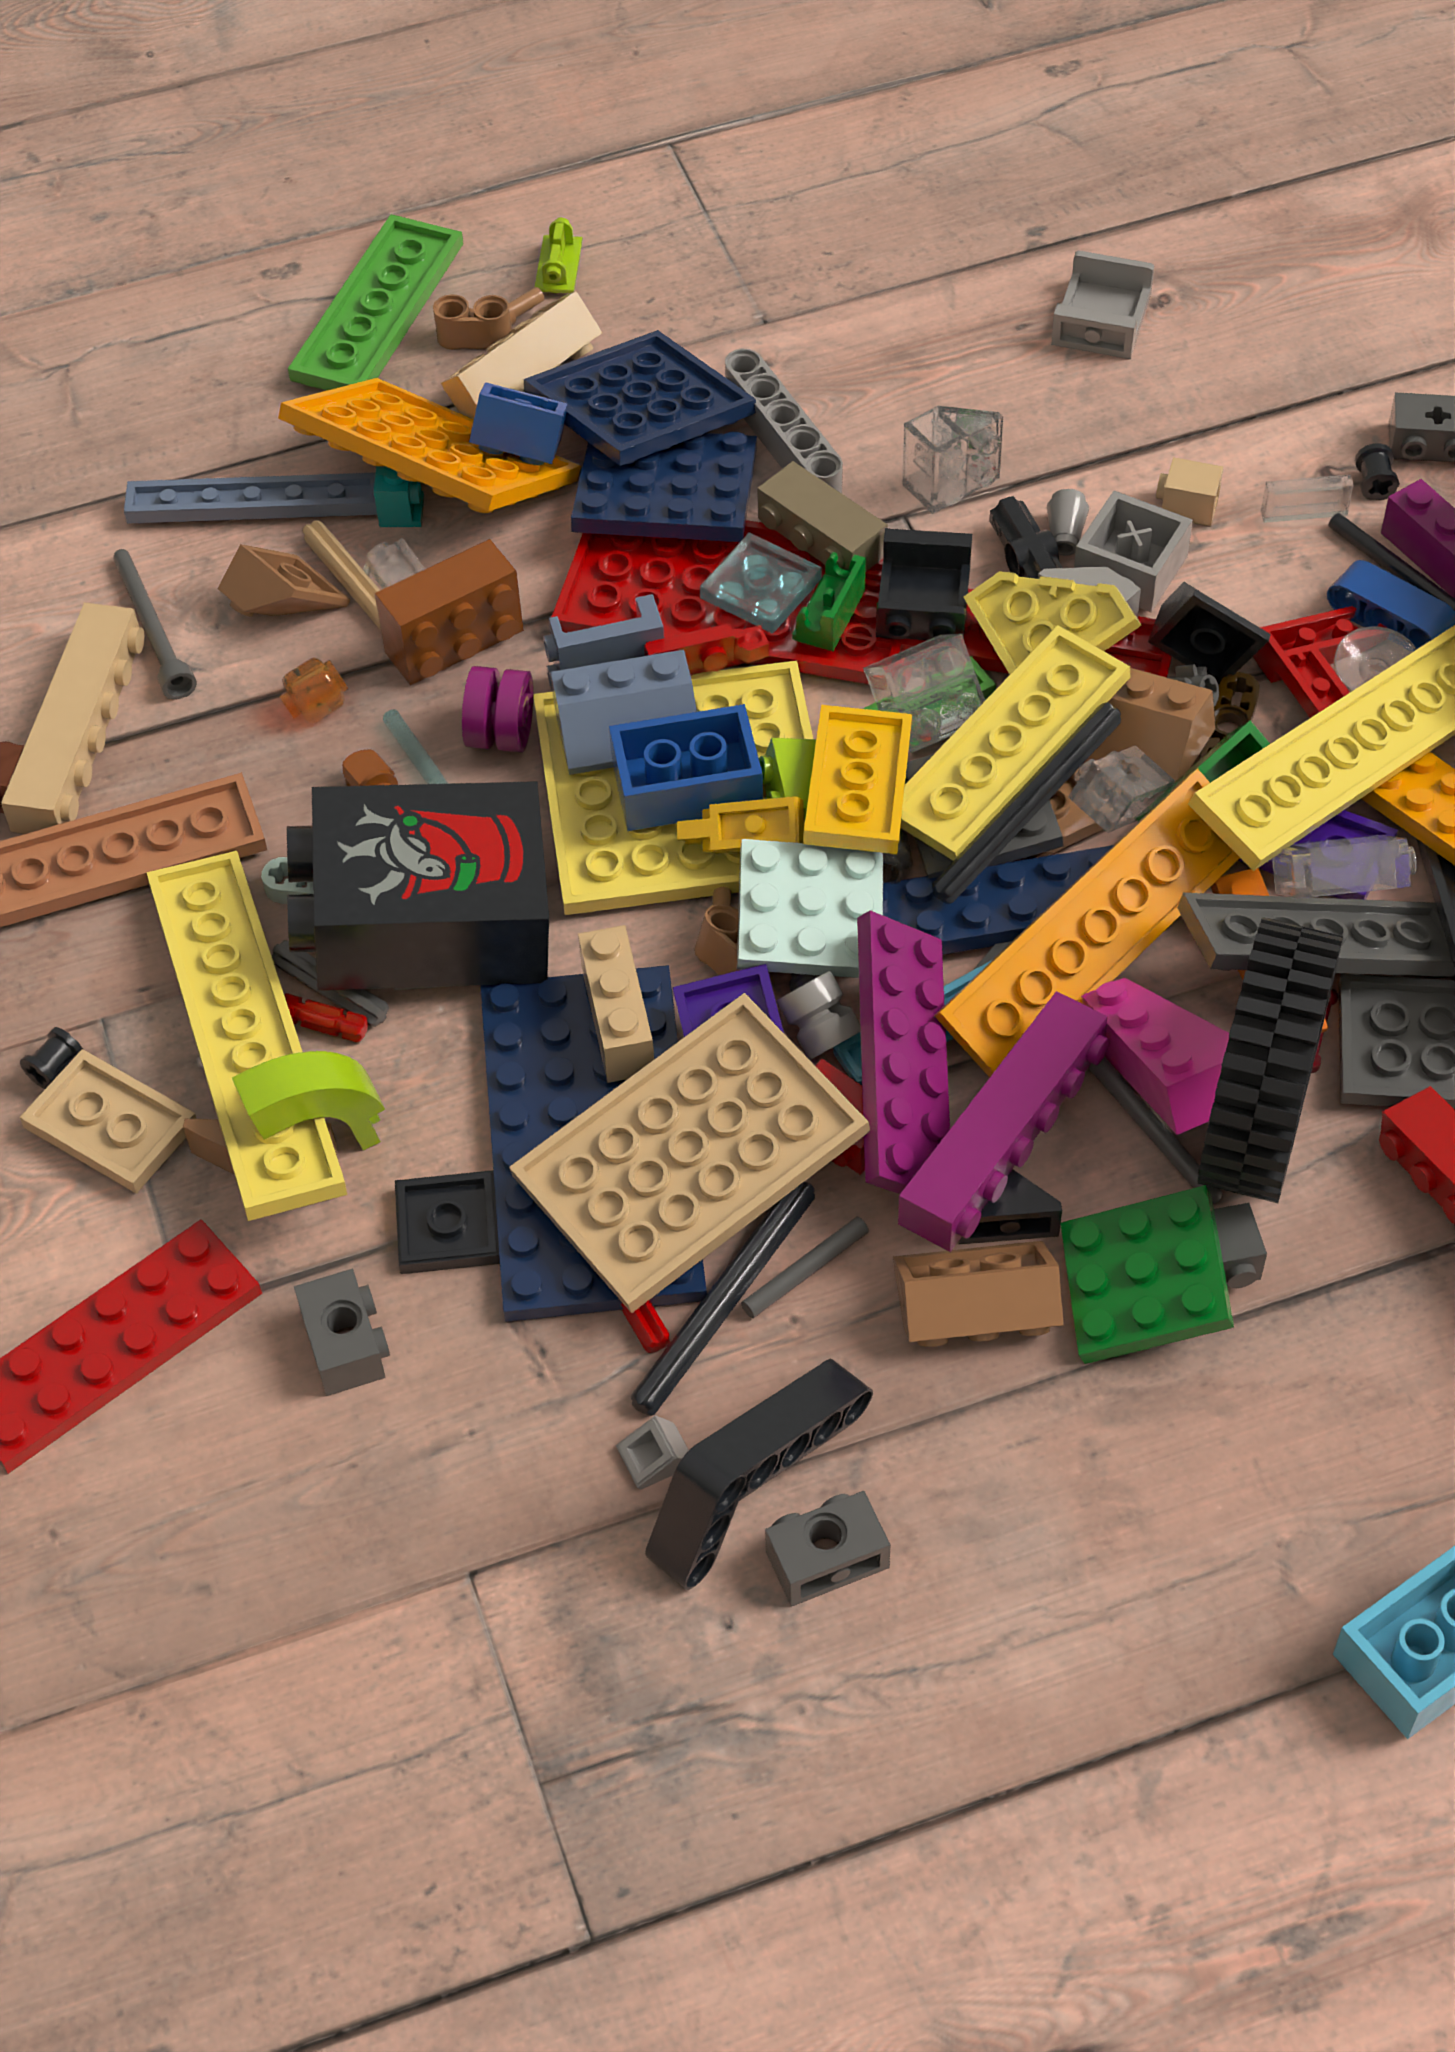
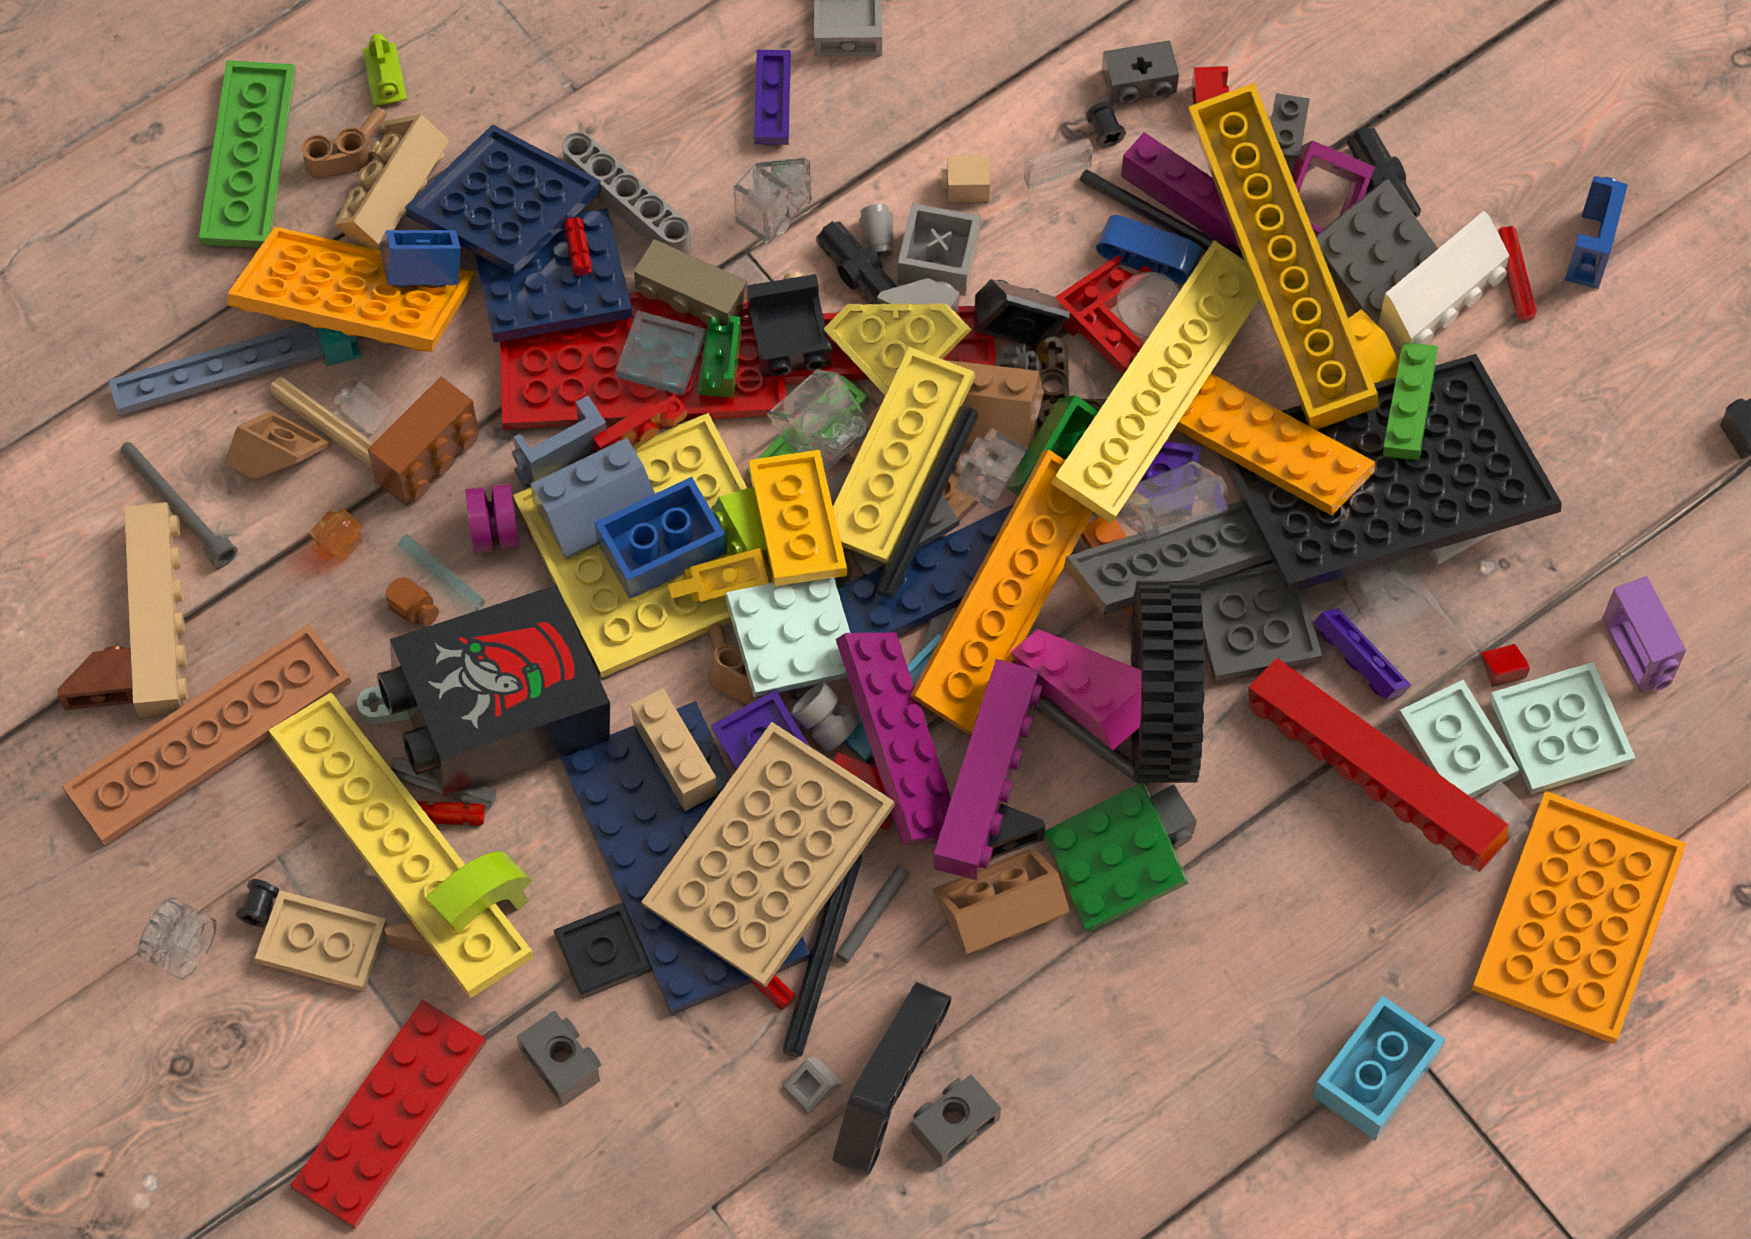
camera: 20 degrees left, 10 degrees up
(703, 455) = (577, 246): none -> red axle
(988, 365) = (772, 97): none -> dark purple plate

